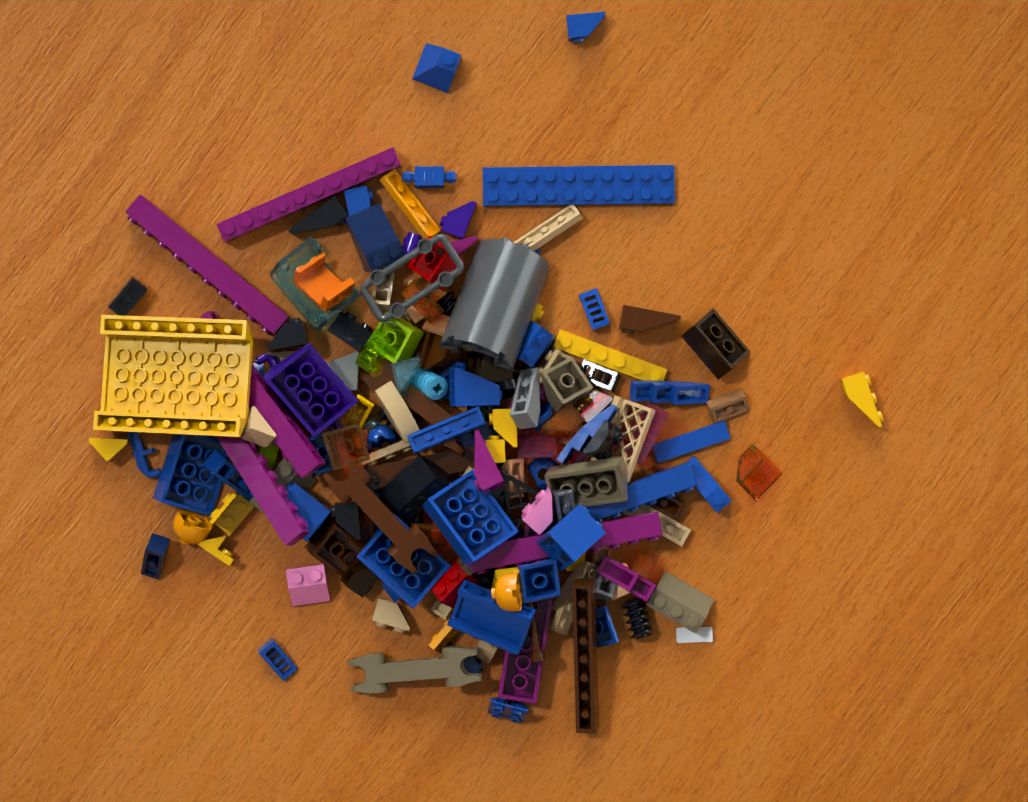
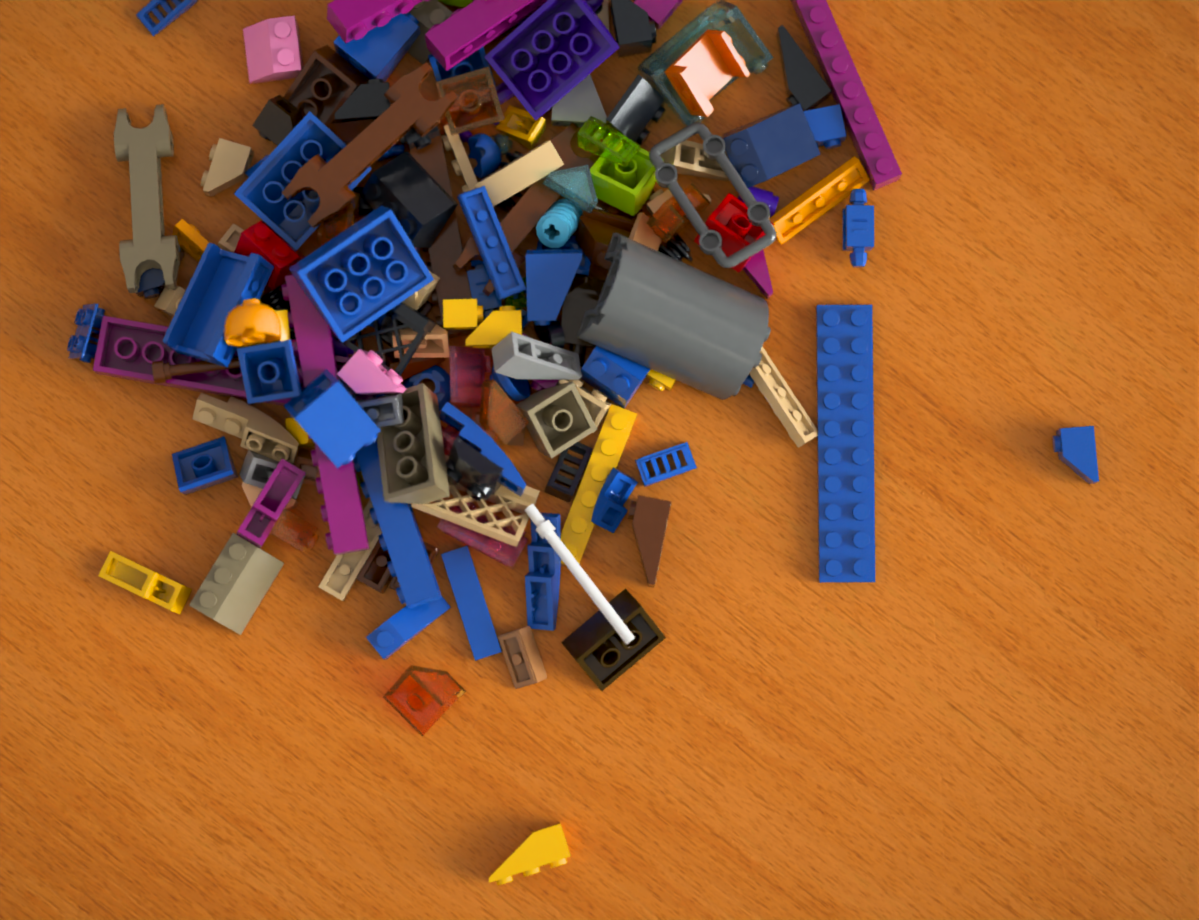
camera: 90 degrees right, 5 degrees down
(437, 67) = (1016, 242): blue slope -> none
(458, 220) = (796, 269): dark purple slope -> none
(485, 468) = (434, 295): magenta slope -> none
(585, 655) = (160, 442): reddish brown brick -> none
(593, 404) = (527, 460): slope -> none
(623, 347) = (609, 505): none -> blue slope
(637, 618) = (214, 520): black piece -> none
(643, 390) = (546, 530): none -> white bar
(679, 665) = (145, 582): none -> yellow slope
(684, 635) = (190, 617): white sticker -> none

